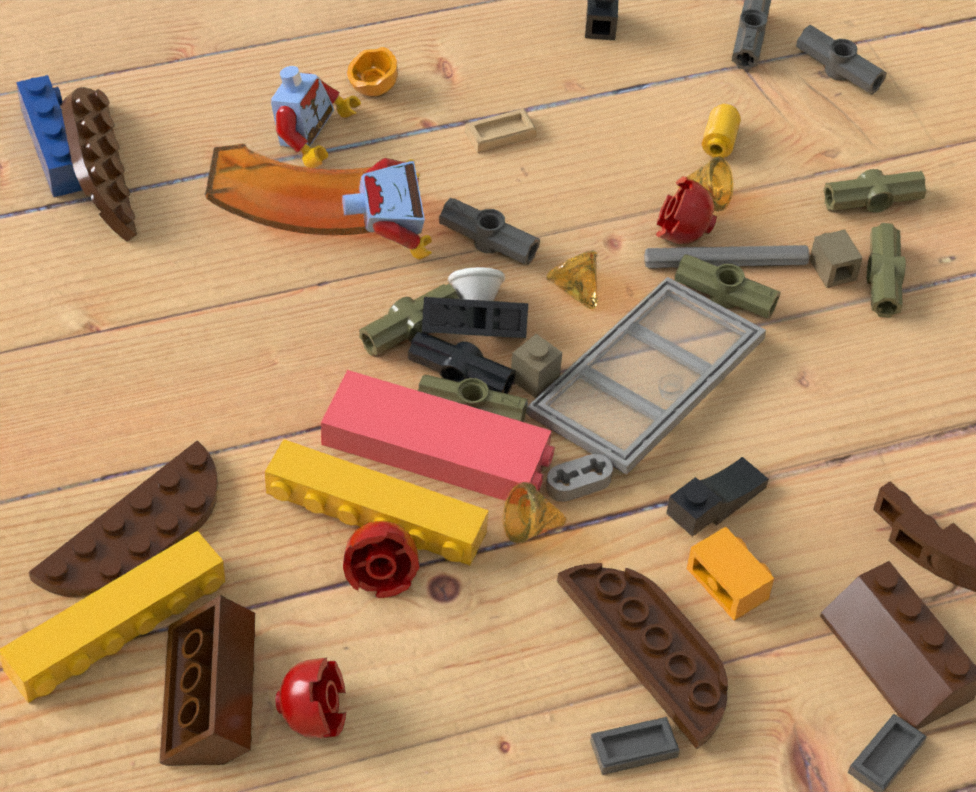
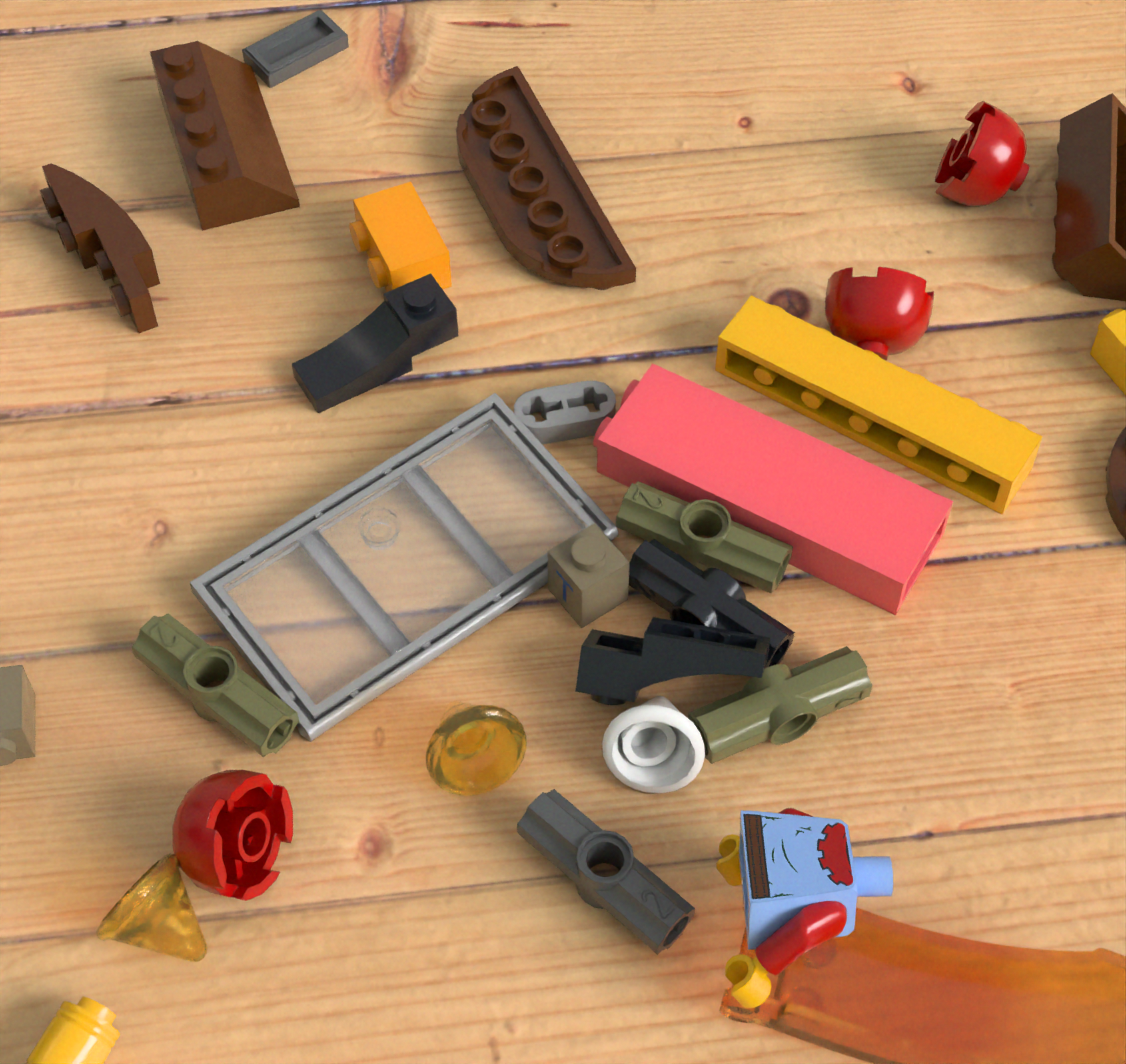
camera: 165 degrees left, 5 degrees up
(529, 514) = (651, 338): clear yellow hat -> none
(634, 745) = (591, 94): dark grey tile -> none
(734, 255) = (175, 763): light grey axle -> none

